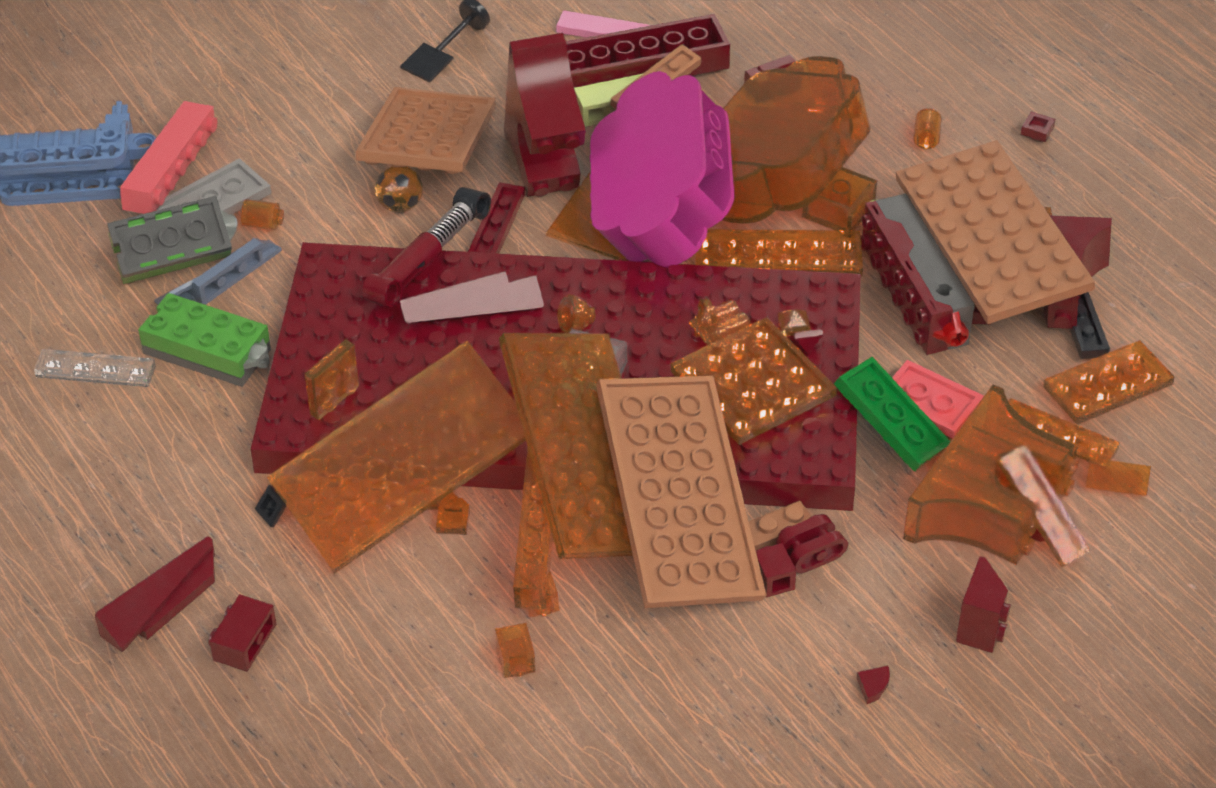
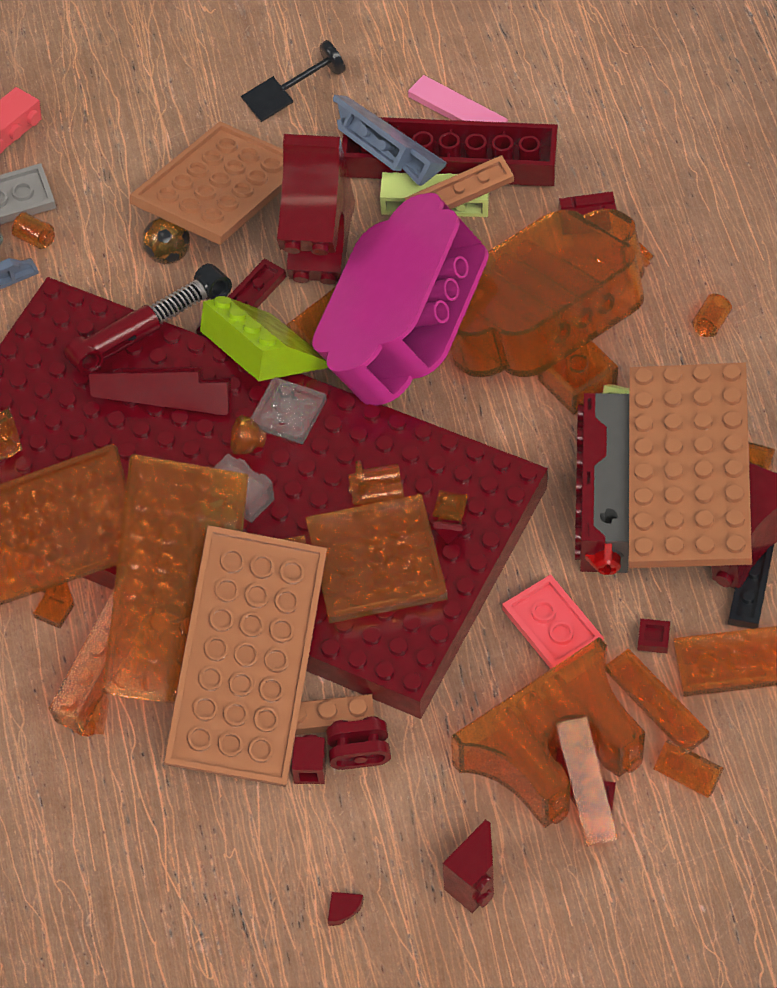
camera: 25 degrees right, 10 degrees up
(515, 650) = (38, 765): clear orange brick -> none
(537, 238) = (257, 340): none -> lime slope
(588, 63) = (386, 142): none -> sand blue wedge
(603, 279) = (291, 403): none -> clear plate
(783, 250) = (492, 415): clear orange plate -> none
(892, 413) = (497, 632): green plate -> none
(1024, 383) = (653, 636): none -> dark red plate

